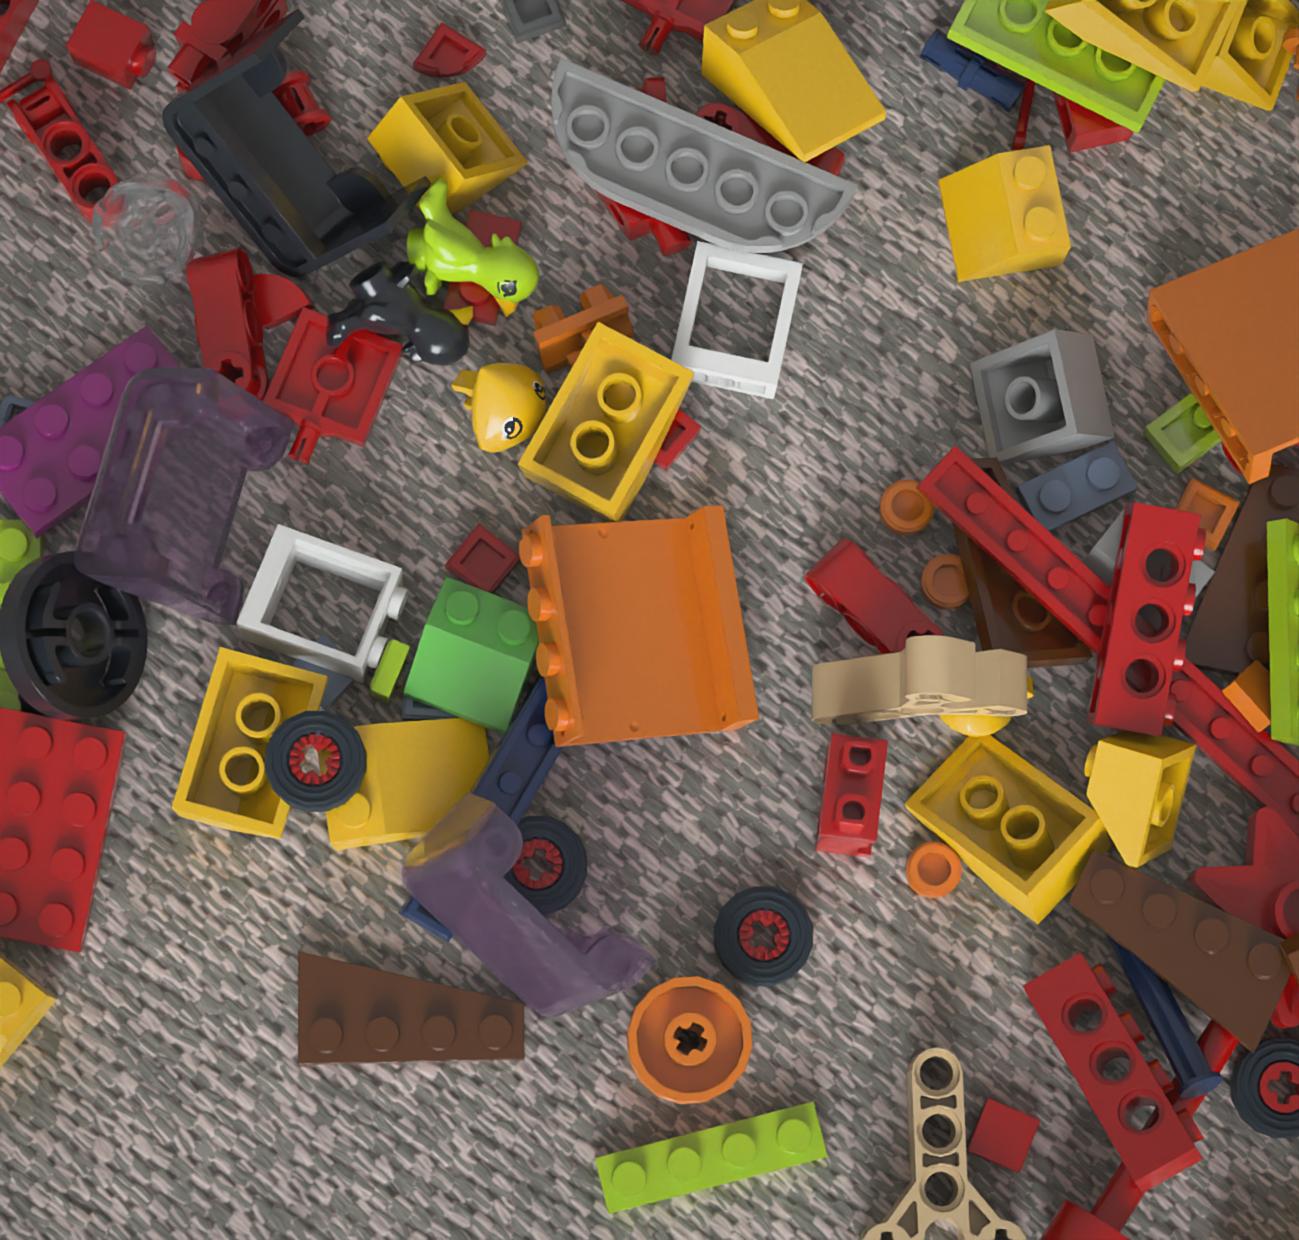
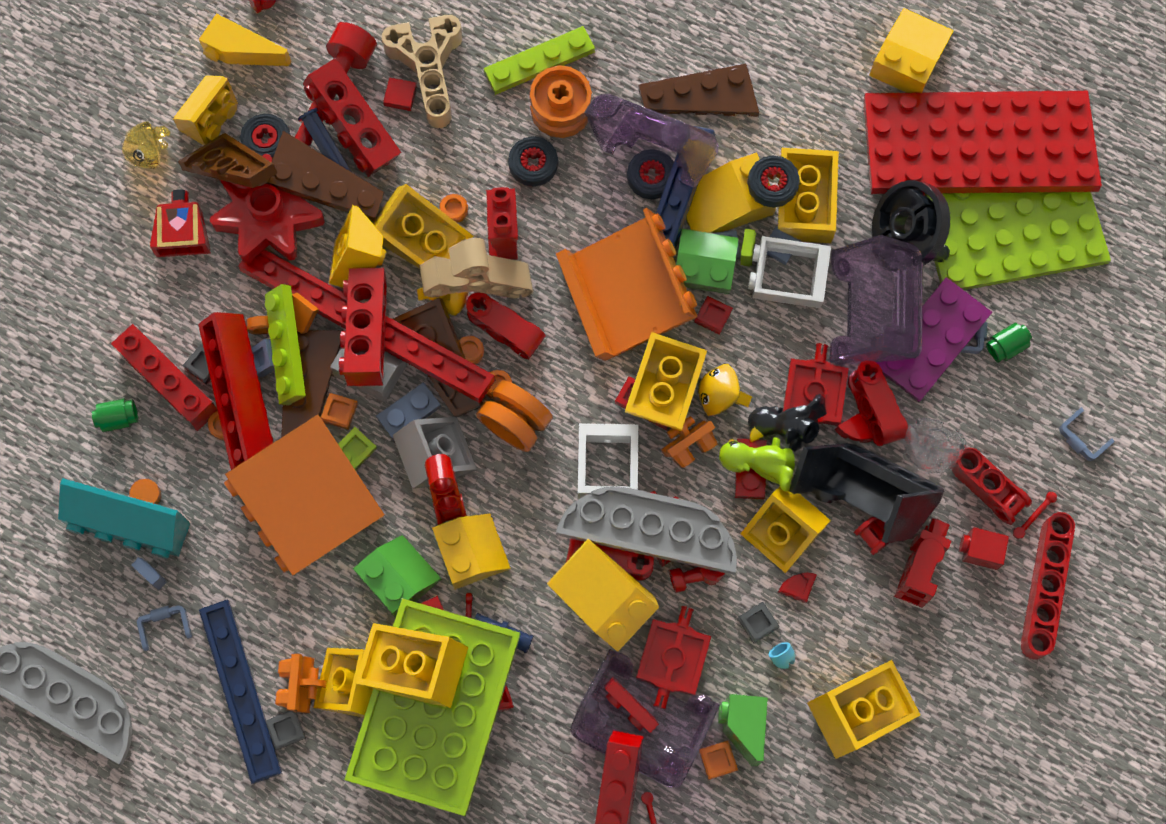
camera: 175 degrees right, 5 degrees down
(892, 418) = (514, 415): none -> orange wheel
(1038, 301) = (444, 488): none -> red piece
(1139, 195) = (396, 573): none -> bright green slope

